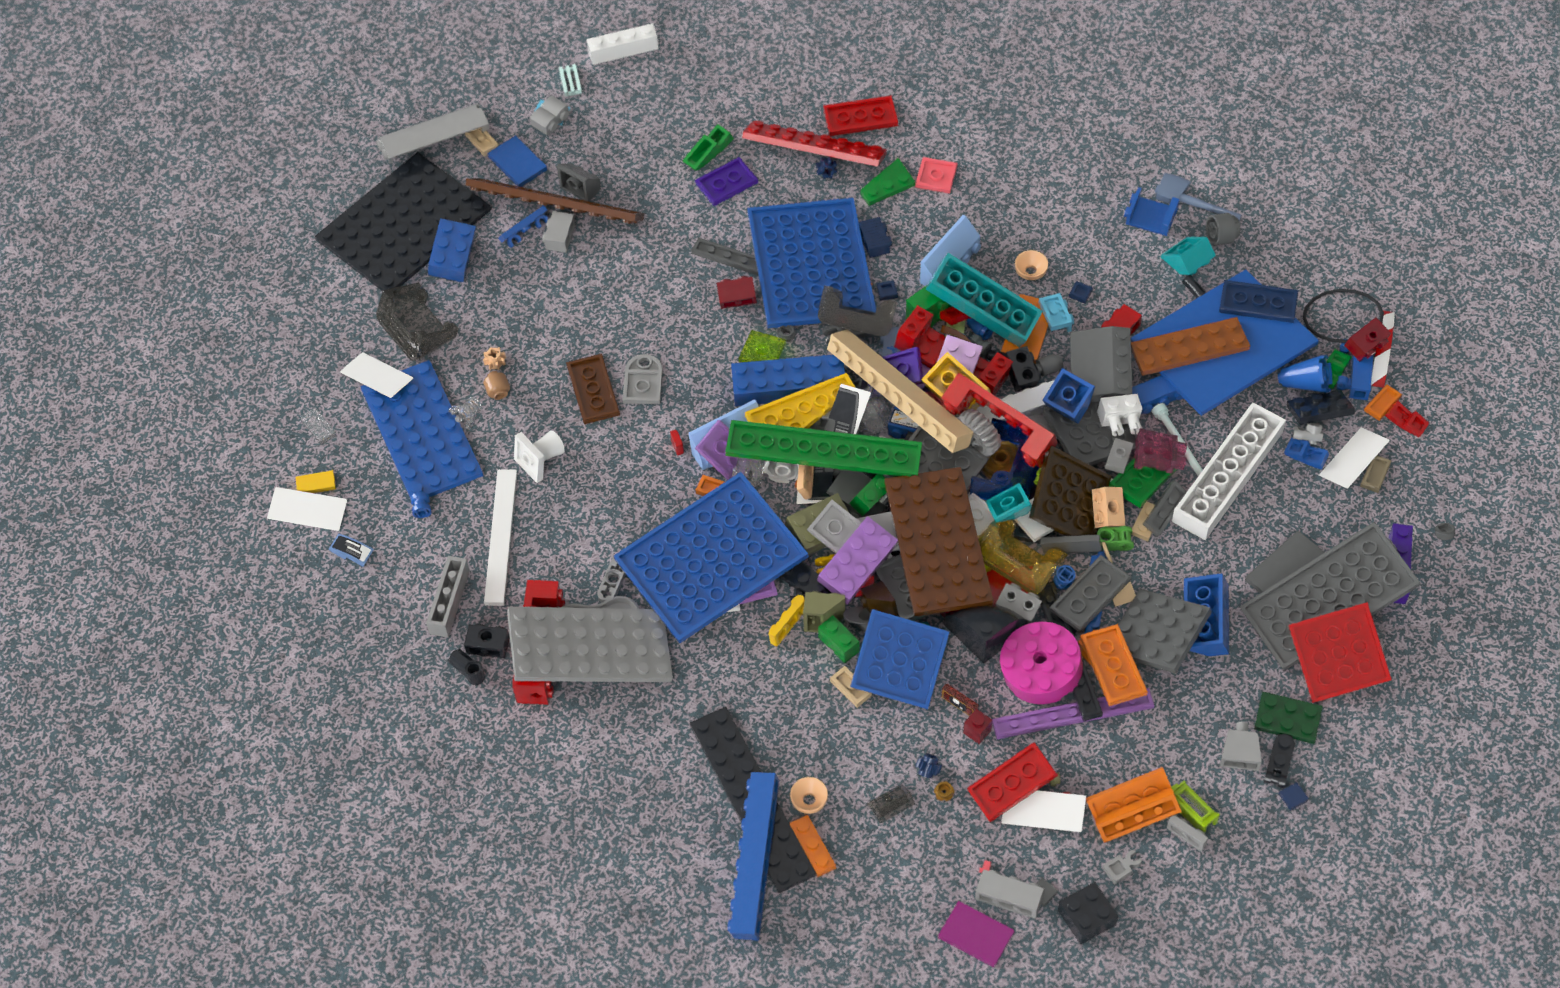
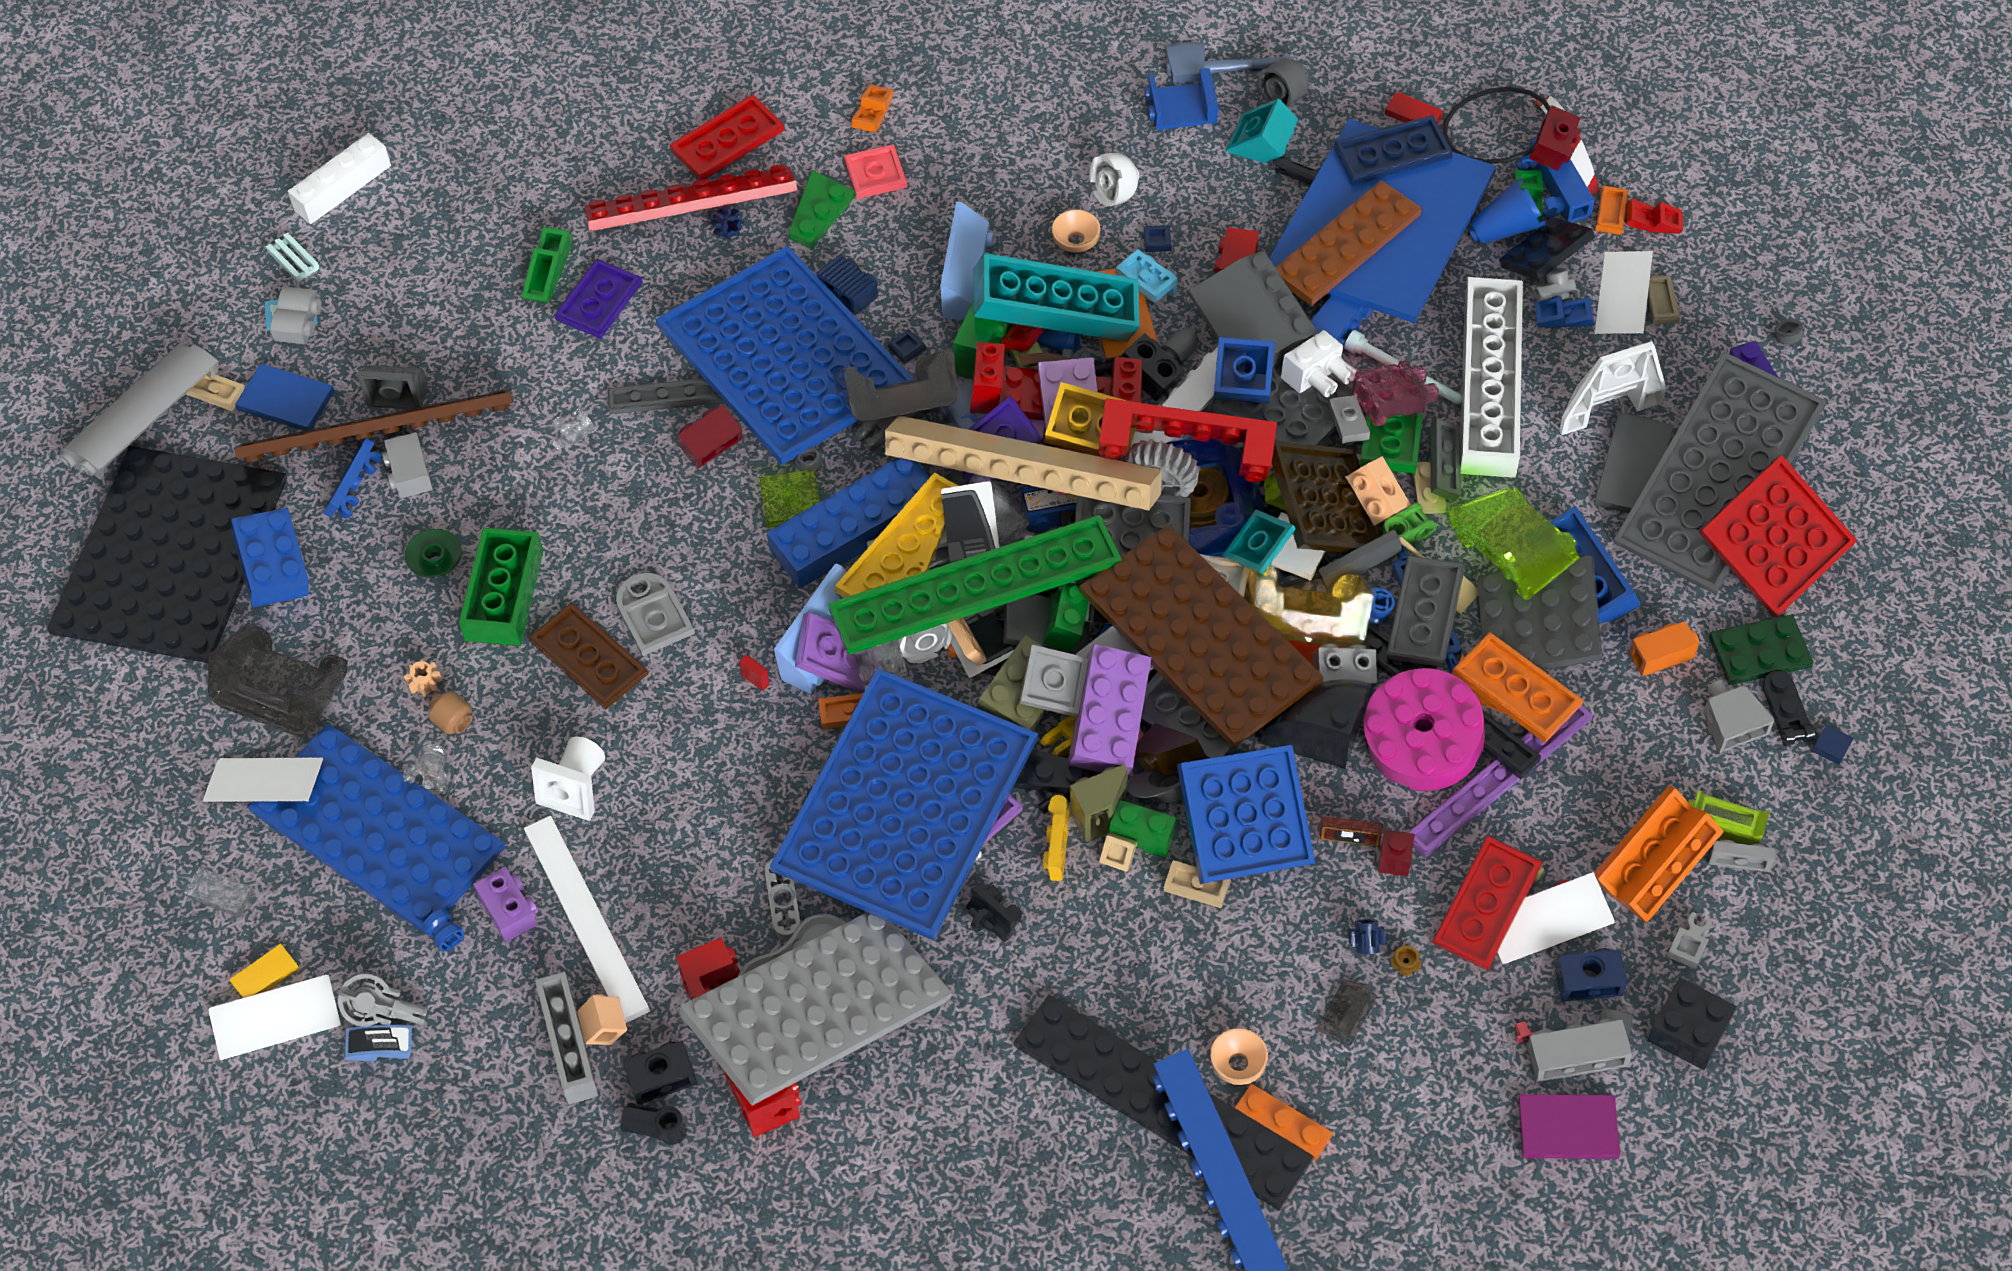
camera: 30 degrees left, 0 degrees up
(361, 526) = (371, 1002): none -> light grey pin
(461, 507) = (505, 903): none -> medium lavender brick
(473, 596) = (601, 1020): none -> light nougat brick
(542, 283) = (430, 544): none -> dark green dish
(566, 326) = (501, 586): none -> green brick
(662, 254) = (572, 431): none -> clear piece
(720, 644) = (990, 914): none -> black hips
(817, 645) = (1118, 851): none -> tan plate
(962, 133) = (873, 108): none -> orange slope
(1052, 864) = (1577, 985): none -> dark blue brick
(1076, 243) = (1114, 178): none -> white cylinder
(1168, 575) = (1514, 538): none -> clear neon green windscreen
(1225, 686) = (1663, 648): none -> orange brick
(1294, 280) = (1408, 109): none -> red tile
(1298, 506) = (1623, 373): none -> white wedge

